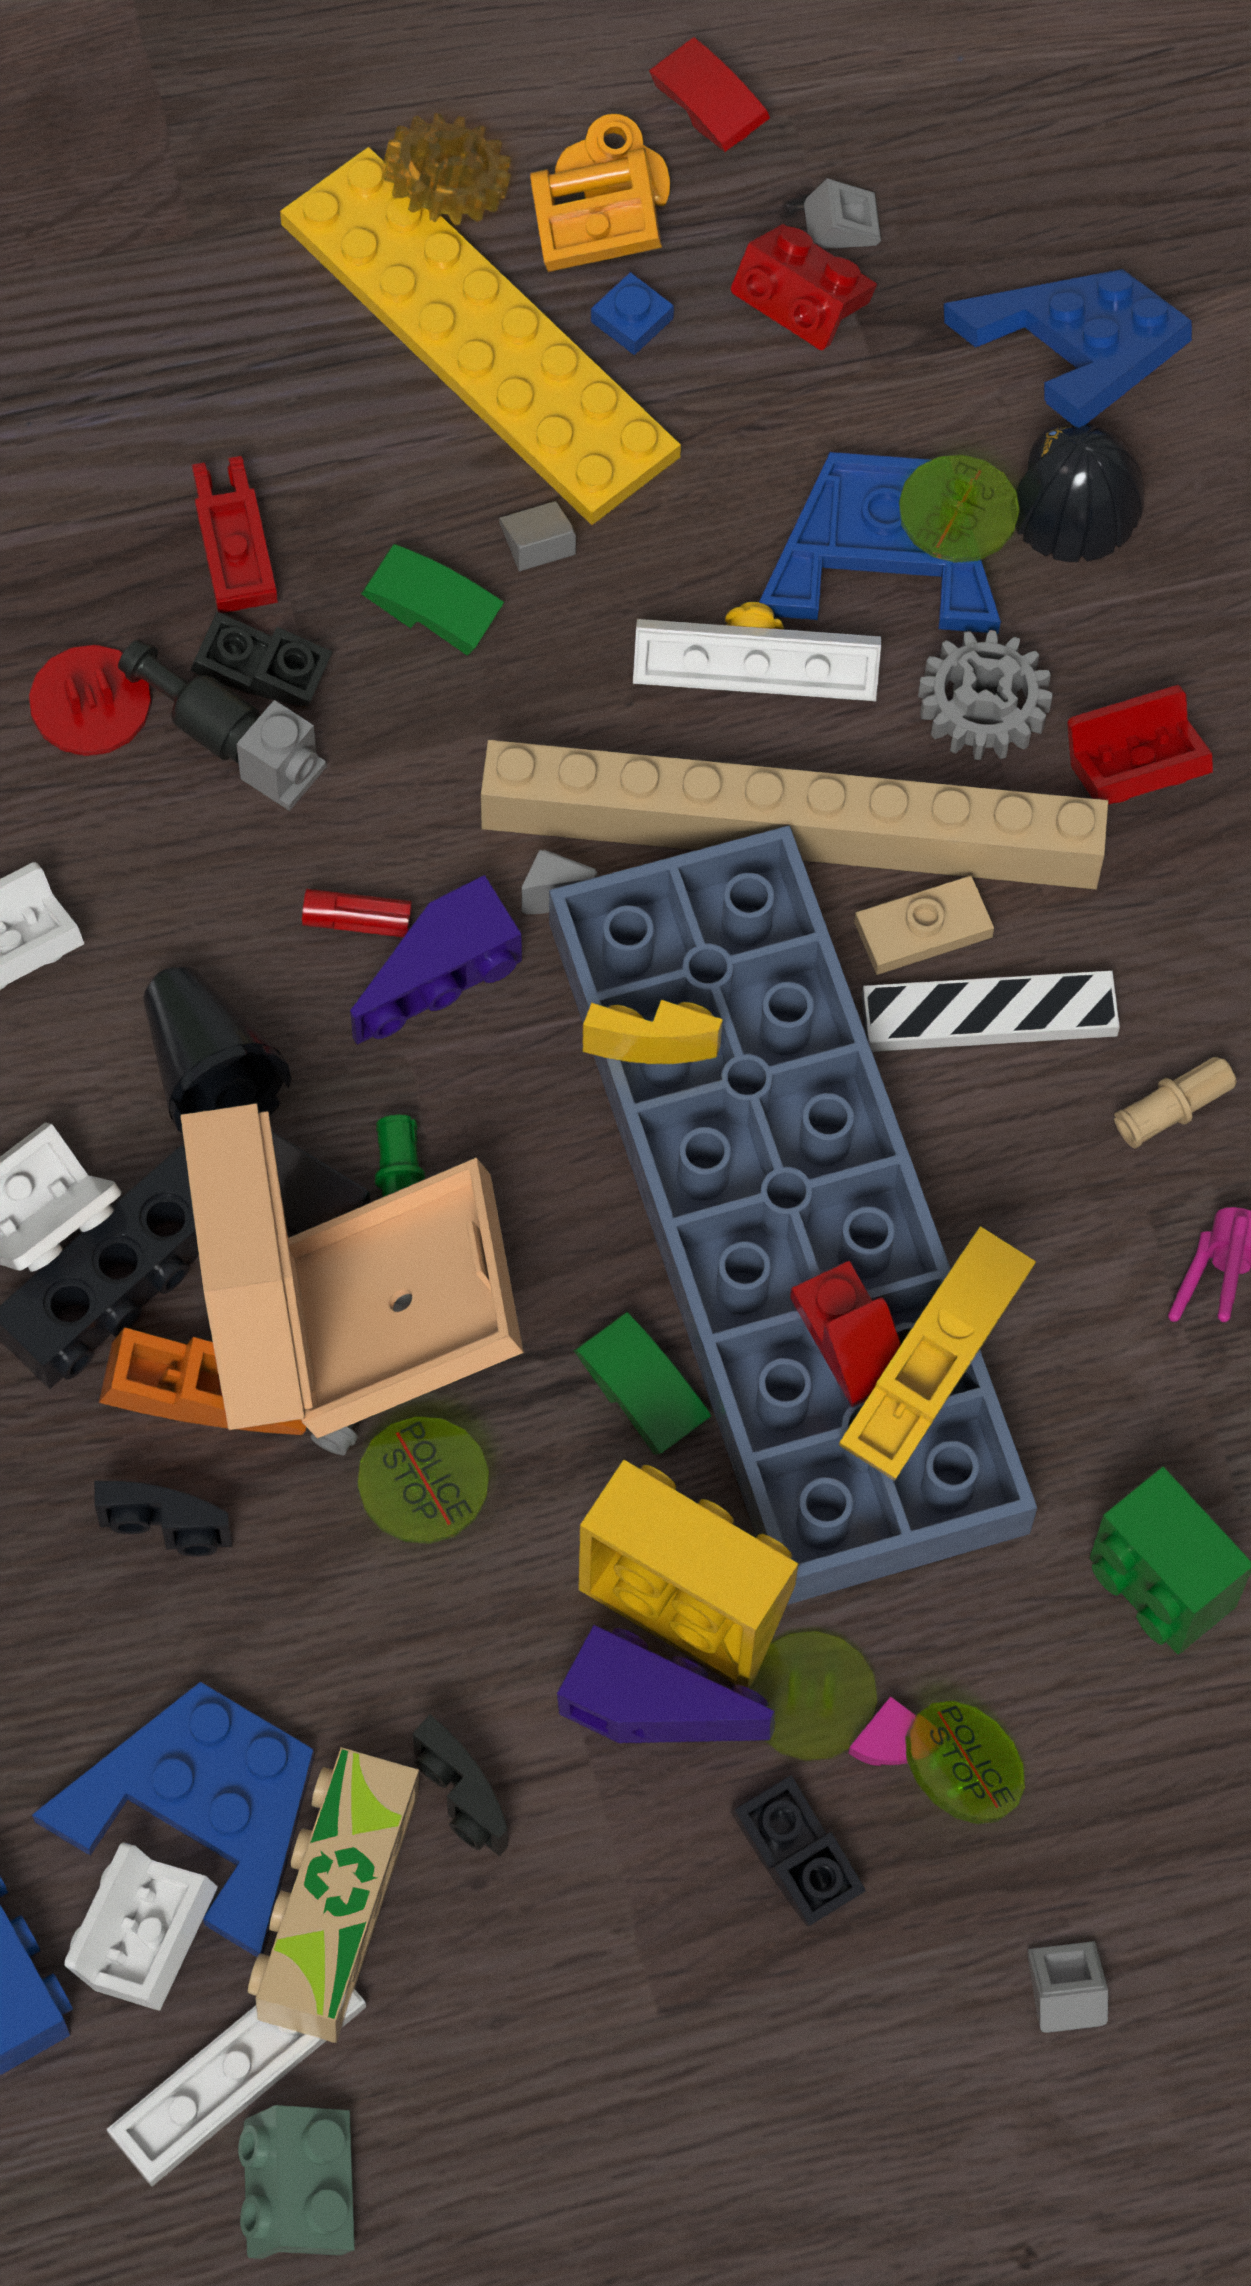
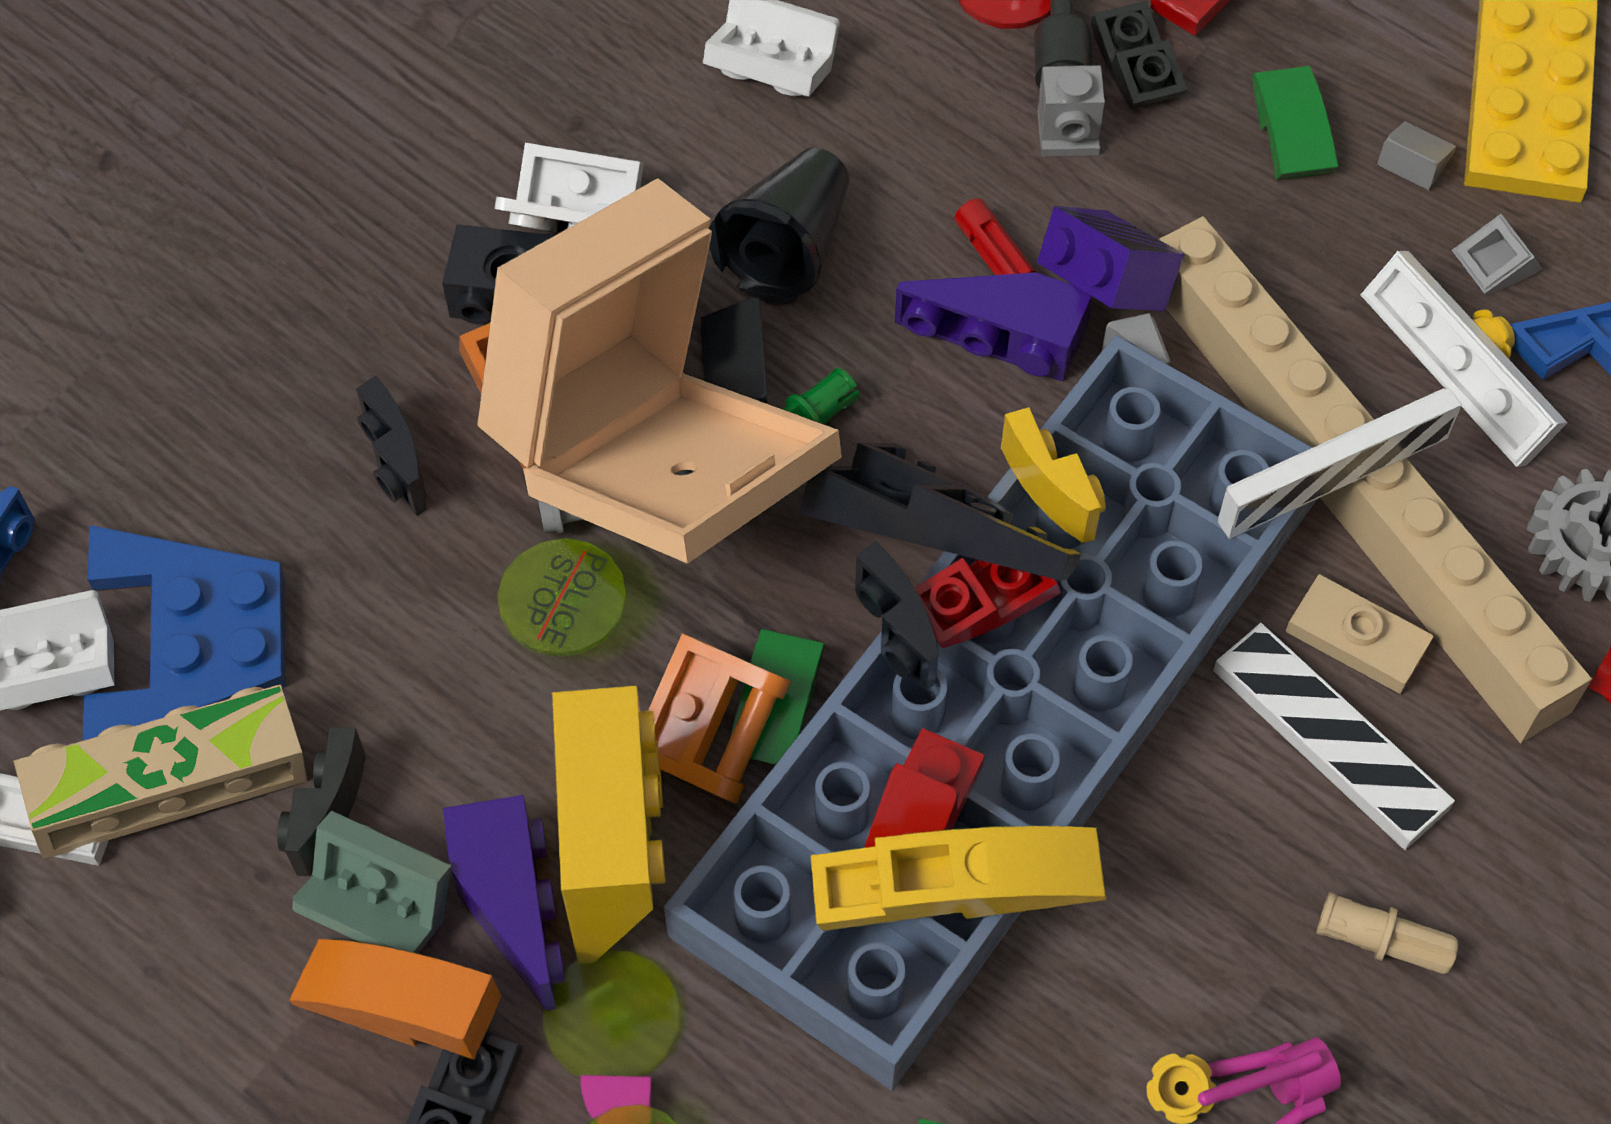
camera: 55 degrees right, 5 degrees down
(465, 838) = (1110, 258): none -> dark purple brick
(577, 1796) = (373, 887): none -> sand green bracket
(582, 1152) = (920, 507): none -> black wedge
(603, 1436) = (691, 709): none -> orange plate
(680, 1838) = (399, 994): none -> orange slope
(681, 559) = (1496, 257): none -> light grey slope
(708, 1158) = (979, 598): none -> red slope
(710, 1238) = (906, 630): none -> black slope
(808, 825) = (1338, 462): none -> white tile
(1200, 1328) = (1162, 1093): none -> yellow plate

